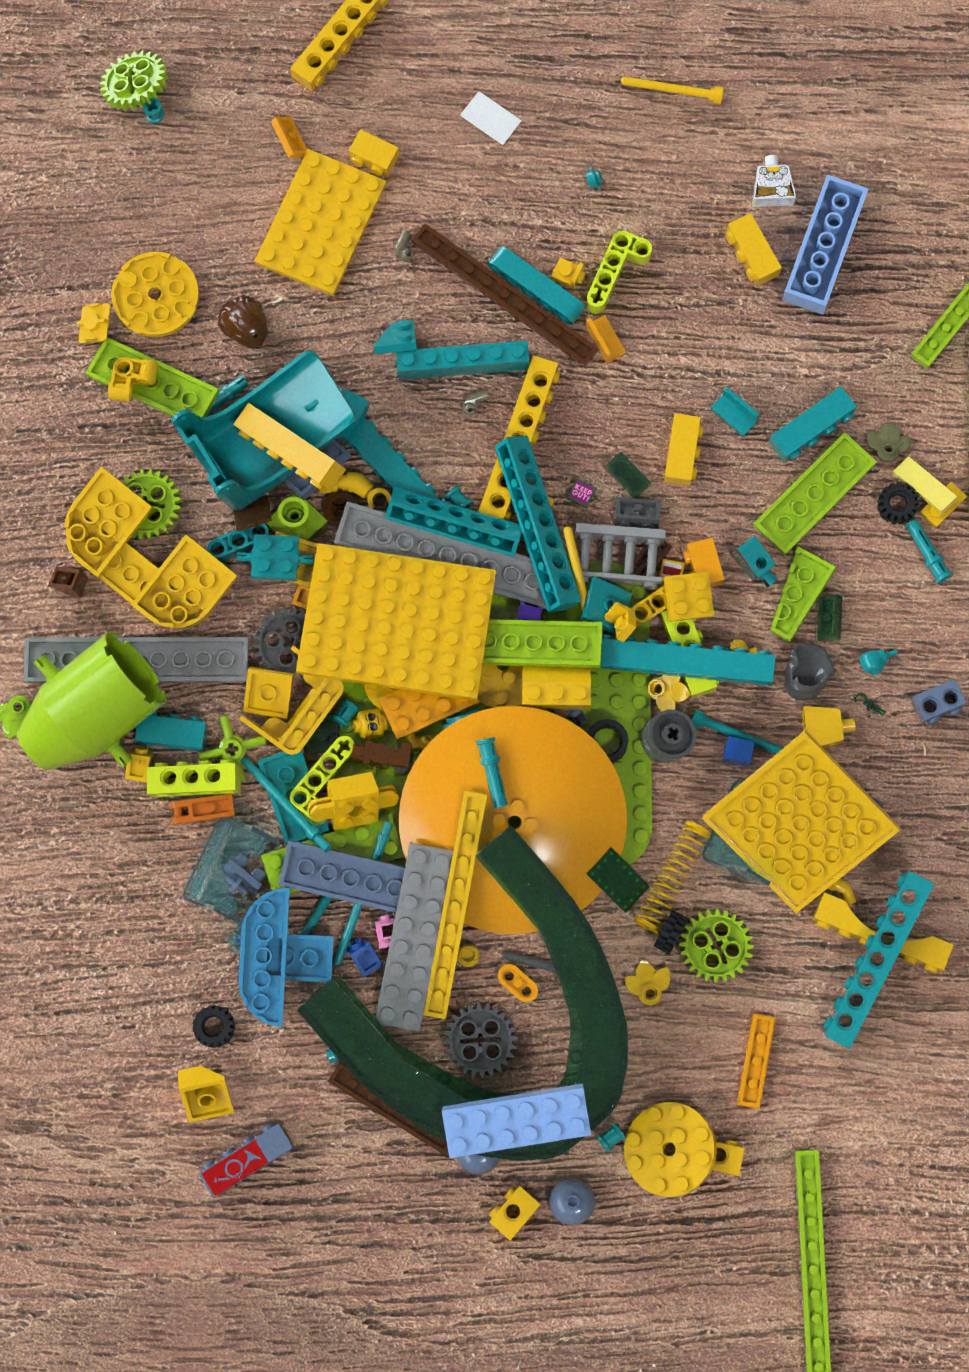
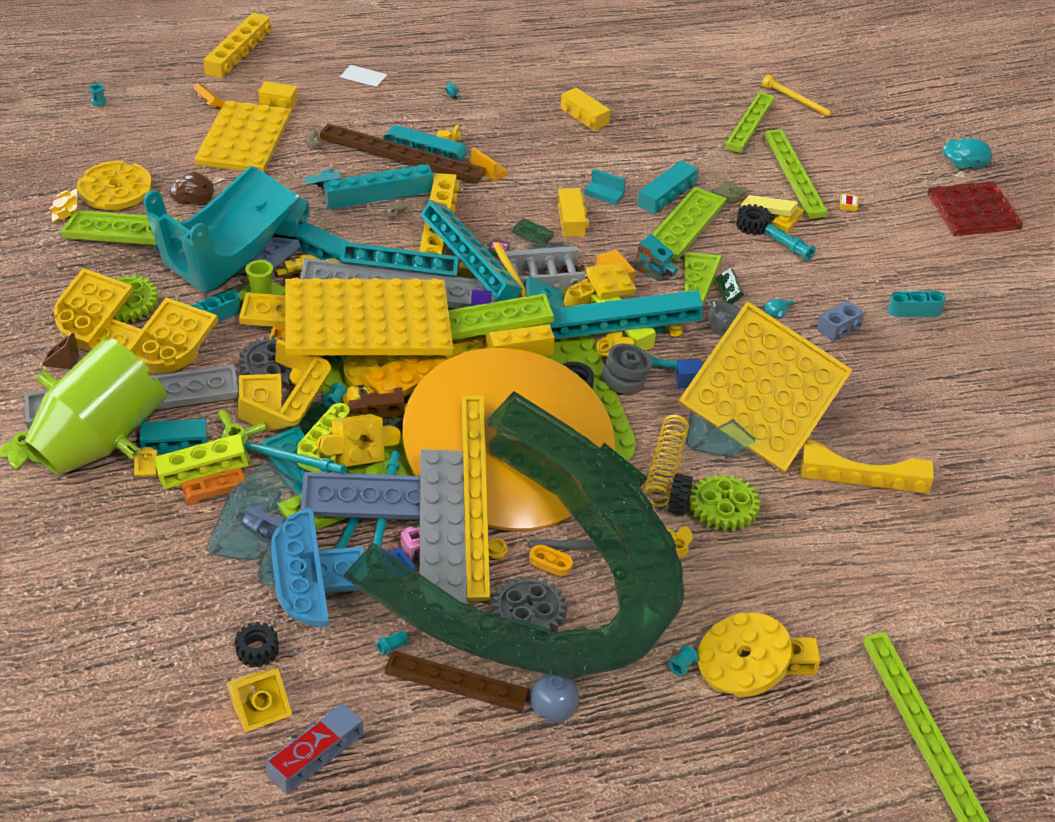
camera: 20 degrees left, 35 degrees down
(120, 80) = (70, 81): lime gear -> none
(140, 372) = (101, 218): yellow piece -> none
(275, 558) = (248, 304): teal plate -> none
(290, 447) = (251, 223): yellow brick -> none
(490, 762) = (479, 376): teal pin -> none
(510, 1226) = (608, 740): yellow brick -> none
(516, 1120) = (589, 625): light blue brick -> none
(572, 1201) = (664, 721): sand blue cylinder -> none
(612, 273) = (486, 119): neon yellow beam -> none
(623, 620) = (560, 294): yellow bracket -> none
(714, 94) = (525, 45): yellow piece -> none
(756, 1061) = (796, 582): light orange tile -> none
(773, 185) = (588, 78): torso -> none
(825, 244) = (637, 98): light blue brick -> none
(846, 1034) = (868, 542): teal brick -> none

